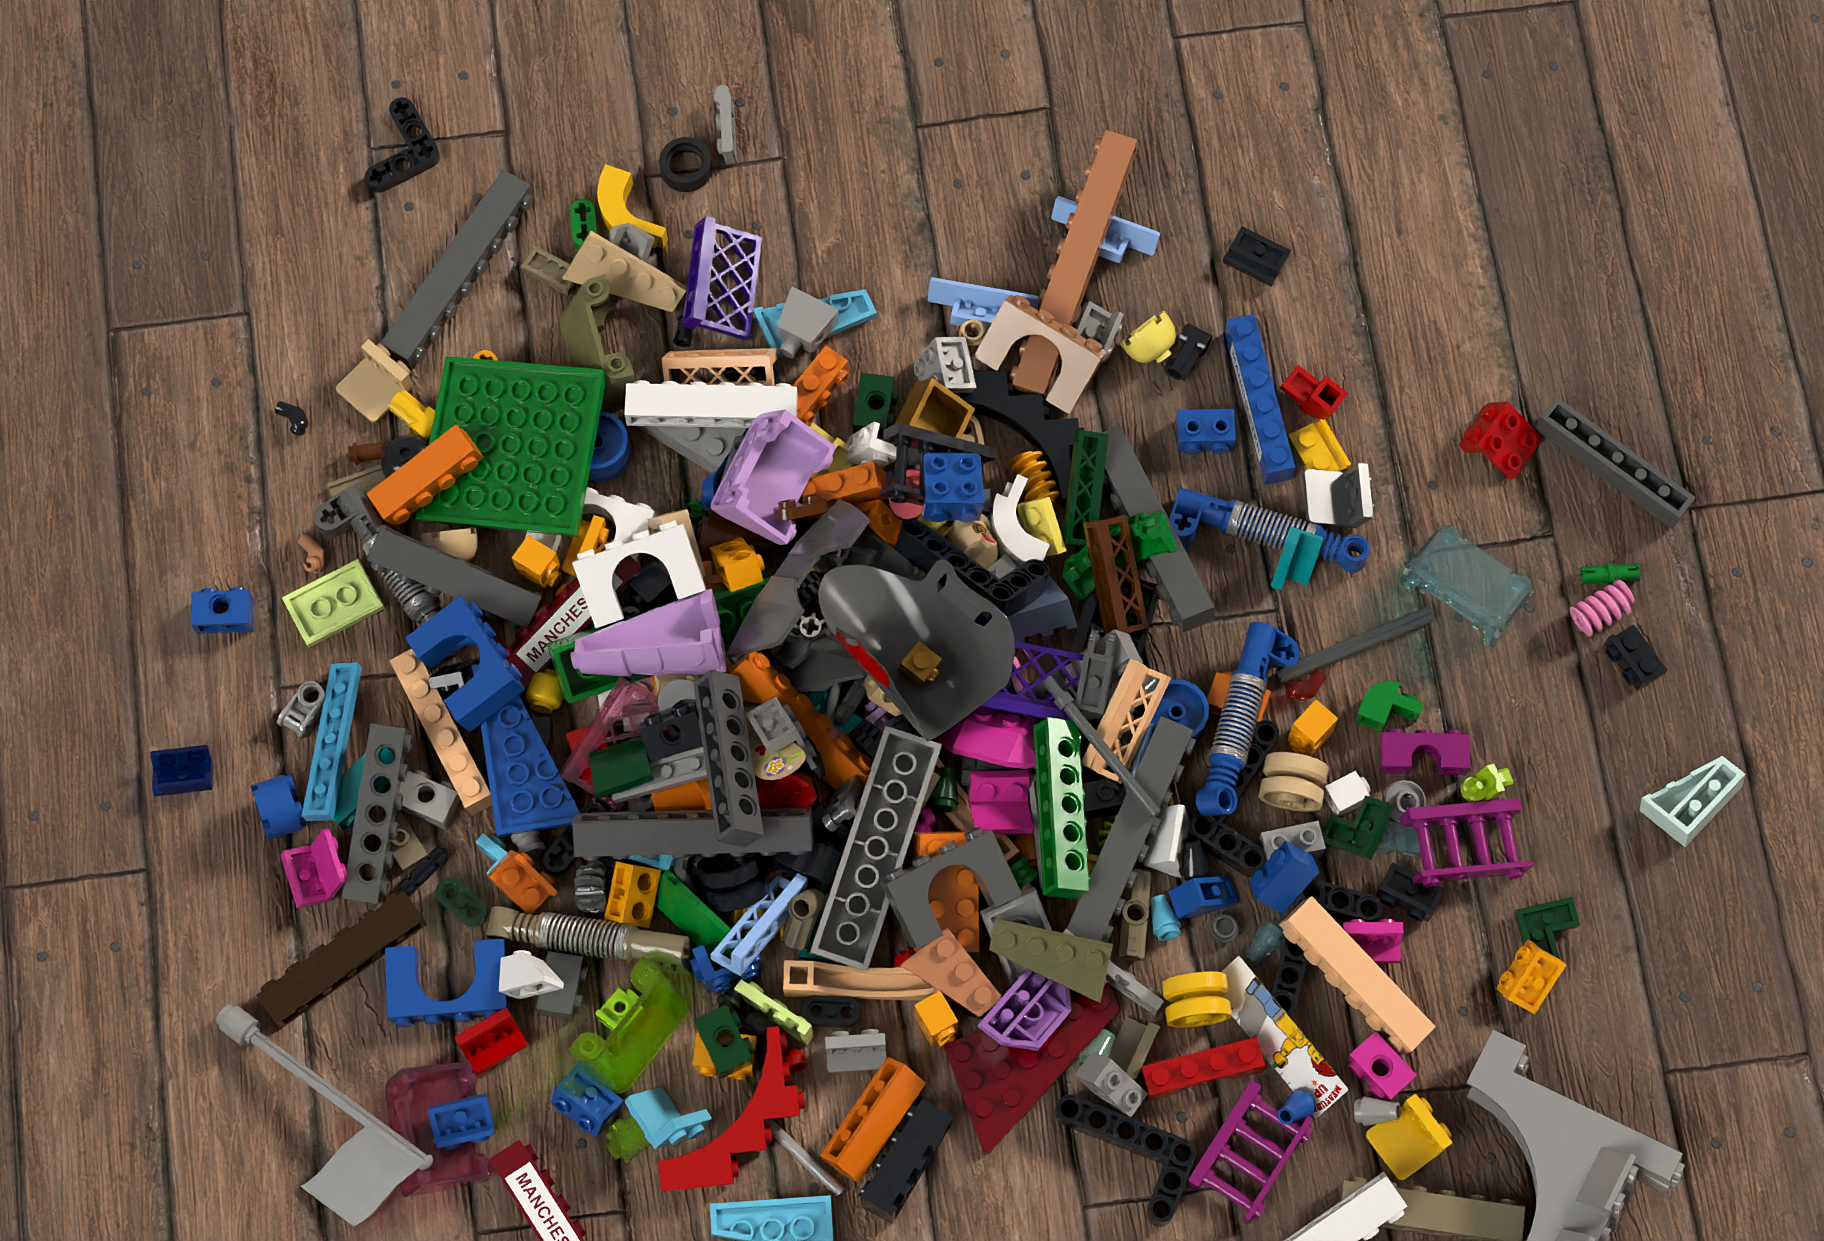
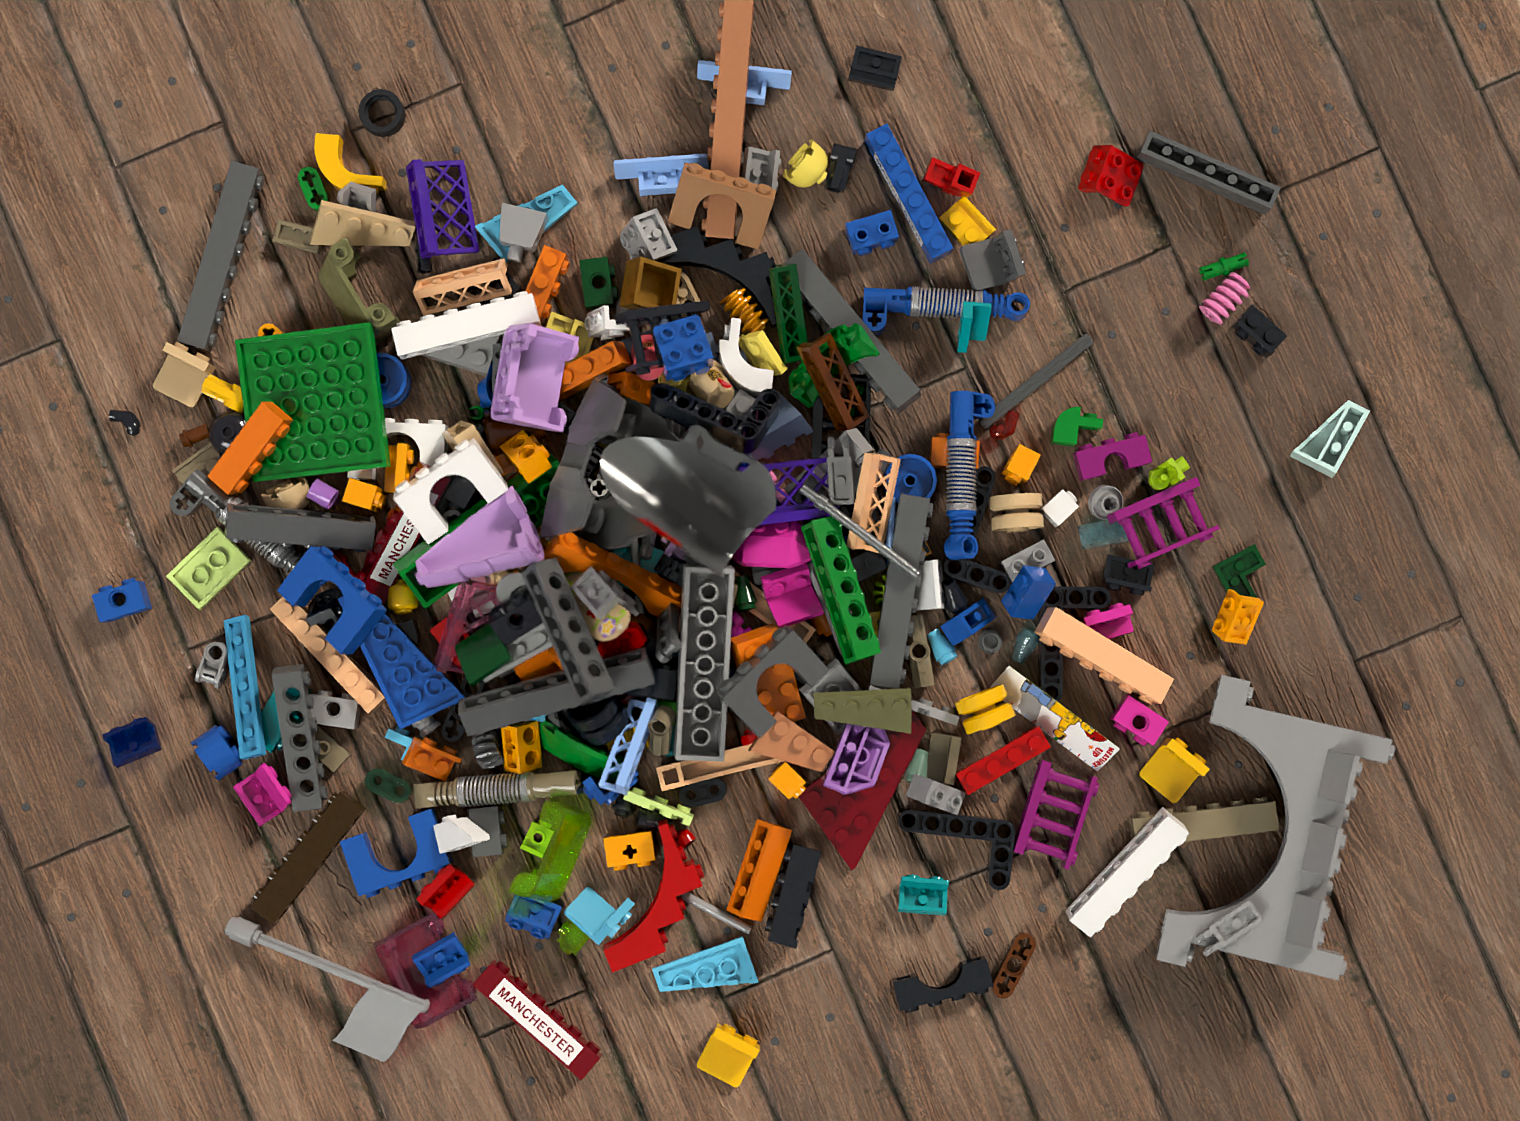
camera: 20 degrees left, 15 degrees up
(315, 555) = (181, 531): nougat arm -> none
(412, 154) = (152, 164): black beam -> none
(422, 871) = (350, 768): black axle -> none
(492, 551) = (323, 494): none -> medium lavender piece
(726, 123) = (405, 67): light grey hinge -> none
(730, 1058) = (632, 859): dark green brick -> none
(790, 509) = (564, 398): reddish brown plate -> none
(855, 1052) = (731, 821): light grey bracket -> none
(920, 665) = (700, 510): pearl gold brick -> none
(974, 333) = (659, 197): tan cone -> none
(1023, 871) = (821, 644): green wheel -> none
(1064, 1205) = (923, 895): none -> teal bracket
(1296, 1107) = (1082, 770): blue cone -> none
(1364, 833) = (1082, 538): dark green plate -> none
(1375, 1111) = (1142, 756): light grey cone -> none
(1468, 582) = (1114, 306): clear light blue windscreen -> none

